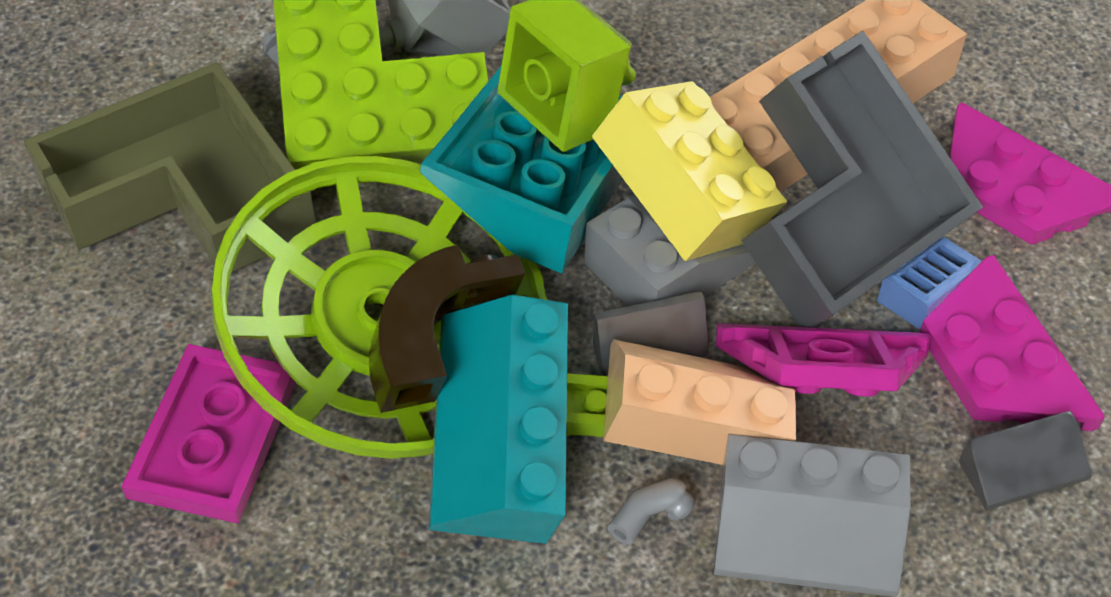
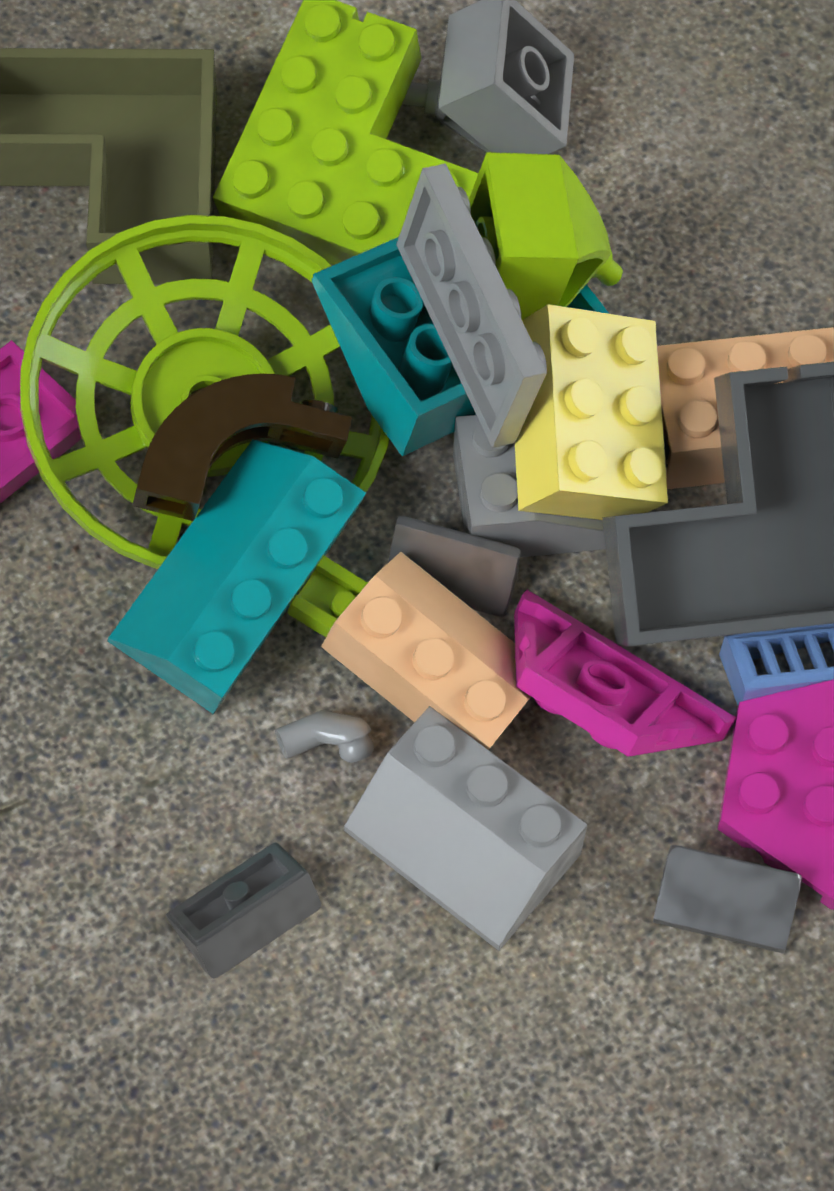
camera: 30 degrees right, 10 degrees up
(567, 123) = (471, 306): none -> light grey plate

